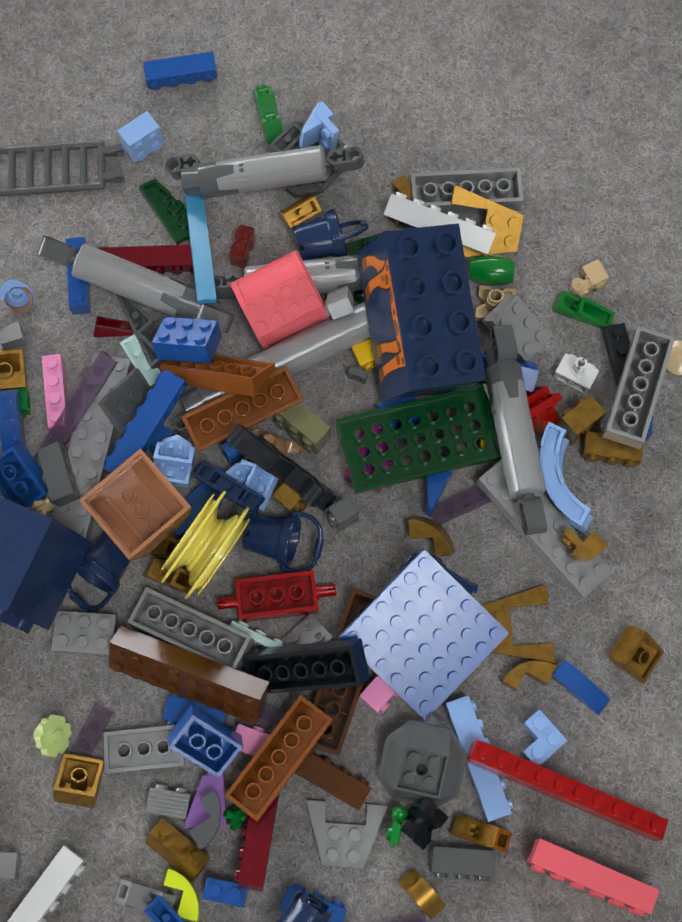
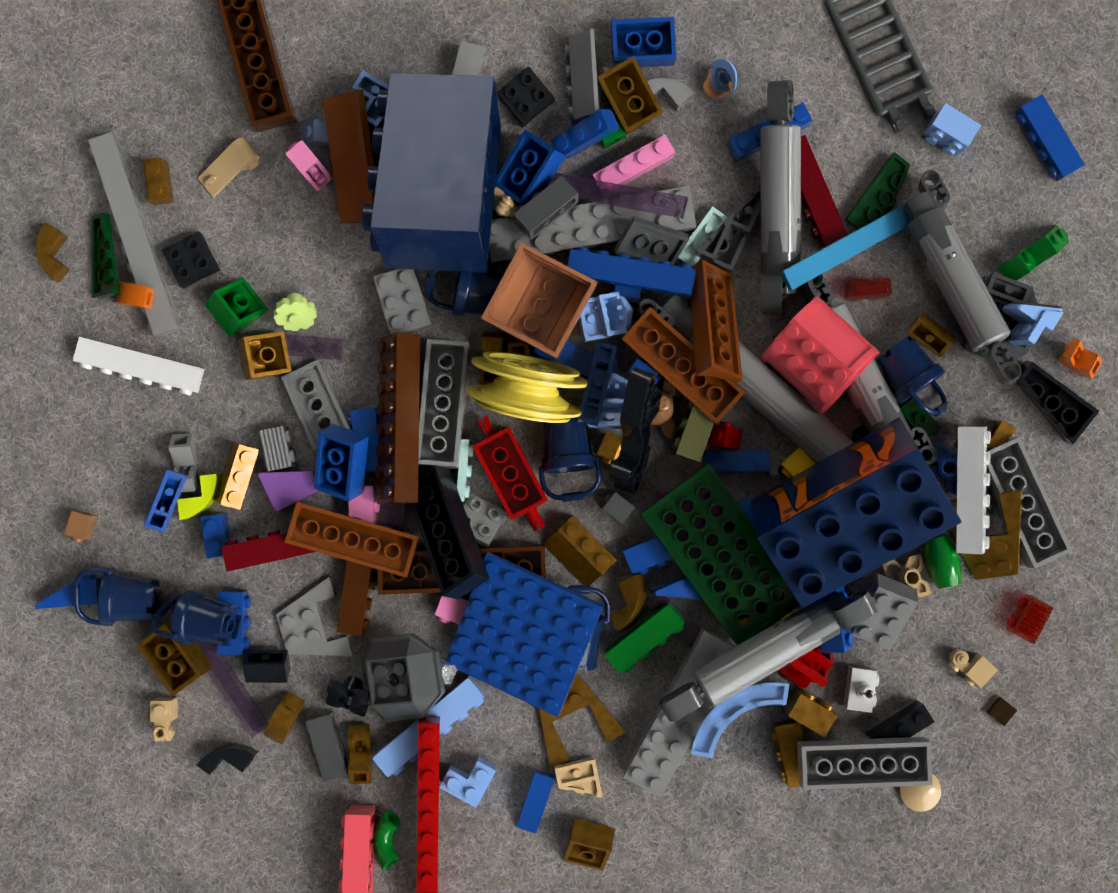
camera: 70 degrees right, 15 degrees up
(22, 791) = (235, 306): none -> green slope
(112, 327) = (725, 188): dark red slope -> none
(187, 339) = (737, 277): blue brick -> none
(206, 831) = (261, 497): dark grey brick -> none
(234, 817) = (284, 517): green plant -> none
(319, 402) = (725, 436): none -> red brick
(339, 302) = (840, 418): light grey brick -> none
(344, 397) = (738, 460): none -> blue slope
(366, 891) = (266, 666): none -> black brick
(367, 110) = (1080, 360): none -> orange brick
(369, 562) = (580, 551): none -> pearl gold slope
(394, 506) = (645, 555): none -> blue brick
(395, 138) = (1057, 403): none -> black wedge
(399, 815) = (346, 672): green plate -> none
(466, 534) = (644, 637): none -> green brick
(537, 670) = (536, 754): pearl gold brick -> none
(564, 221) = (1029, 618): none -> clear red brick
(571, 639) = (579, 776): none -> tan wing
(578, 844) = (382, 839): none -> green cylinder
(582, 310) = (934, 672): green slope -> none
(583, 550) = (670, 766): pearl gold brick -> none
(635, 270) = (1001, 711): none -> dark brown tile

